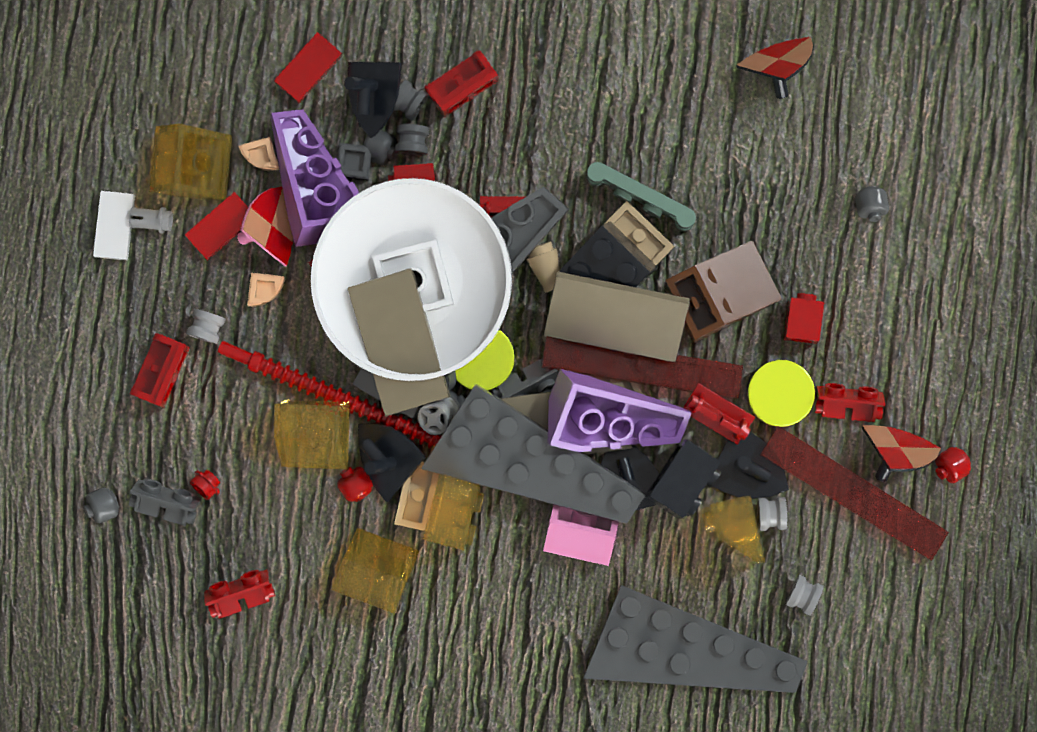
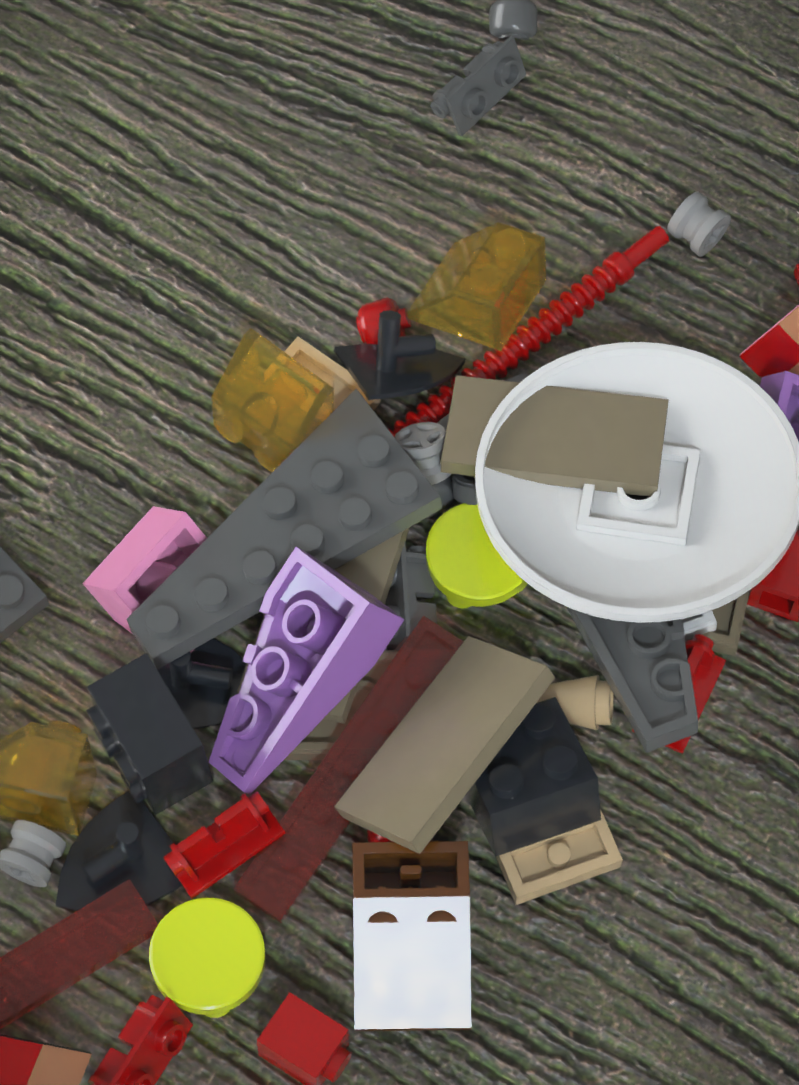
camera: 110 degrees right, 20 degrees down
(160, 370) = (660, 150): red hinge -> none
(205, 484) = (477, 139): red plate -> none
(224, 596) = (310, 101): red hinge -> none
(264, 288) = (720, 323): light nougat tile -> none
(375, 570) = (243, 282): clear yellow slope -> none
(653, 201) = (602, 901): sand green plate -> none

